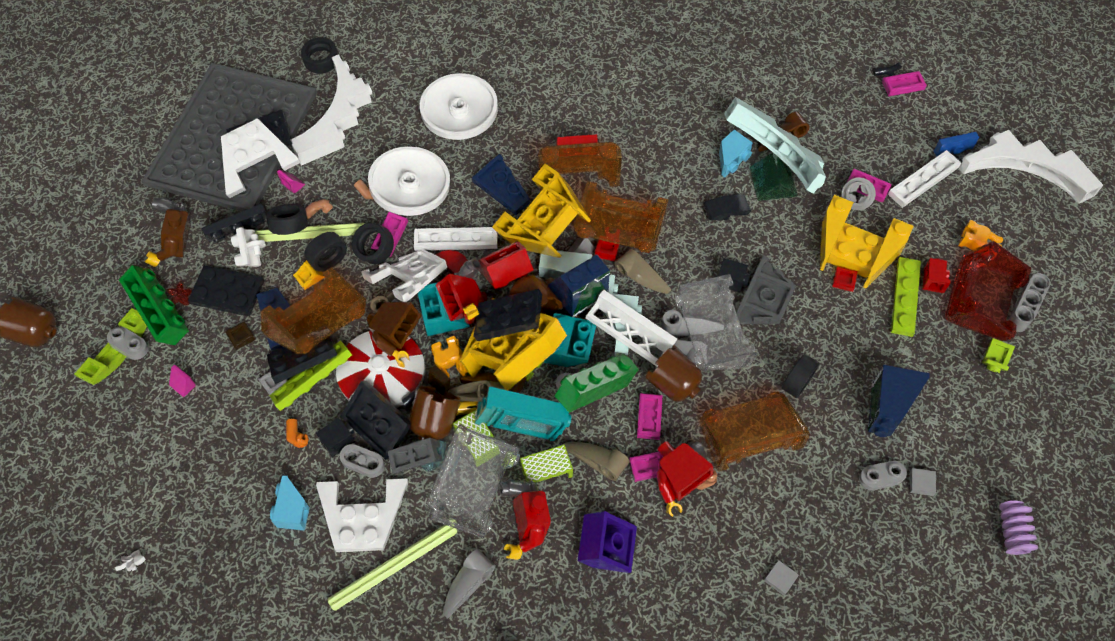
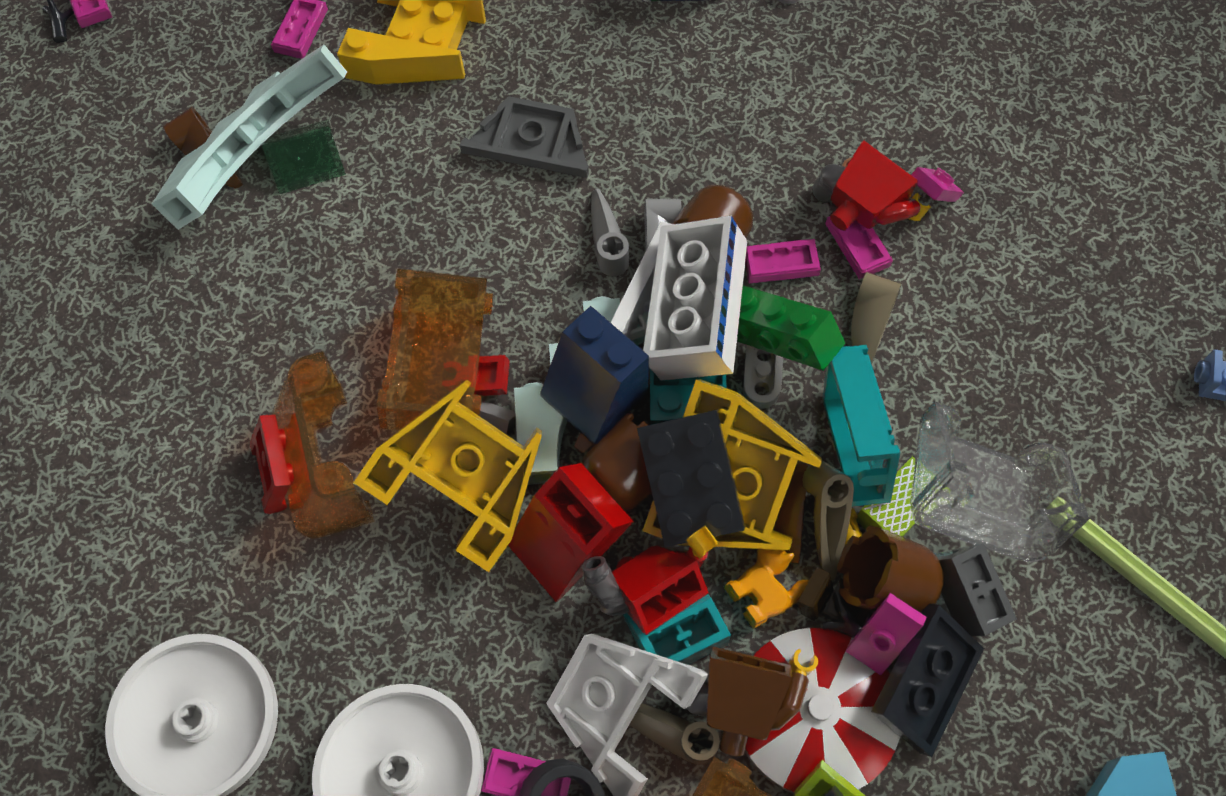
camera: 100 degrees left, 5 degrees up
(336, 436) = (977, 747): black brick -> none
(361, 525) = (1107, 658): white wing -> none
(363, 460) = (1005, 690): light grey plate -> none
(402, 396) = (886, 634): none -> dark pink plate
(453, 260) = (564, 633): red tile -> none
(455, 238) = (513, 647): white plate -> none
(472, 574) = (1125, 456): light grey piece -> none
(500, 184) = (374, 591): dark blue wing -> none
(530, 514) = (1011, 384): red torso -> none
(546, 464) = (914, 382): lime panel -> none
(607, 542) = (1004, 282): dark purple slope -> none
(613, 337) = (696, 299): none -> white brick
(635, 267) = (522, 318): dark tan piece -> none
(682, 518) = (937, 184): none -> dark pink plate
(714, 325) = (622, 180): clear windscreen -> none
(726, 206) = (370, 210): black slope -> none
(733, 151) = (256, 215): medium azure slope -> none
(737, 272) = (505, 183): black brick -> none
(752, 429) = (775, 116): clear orange windscreen -> none
(781, 578) = (965, 71): light grey tile -> none
(800, 375) = (676, 56): black tyre -> none
(844, 279) = (477, 44): red tile -> none
(867, 188) = (332, 28): light grey gear -> none

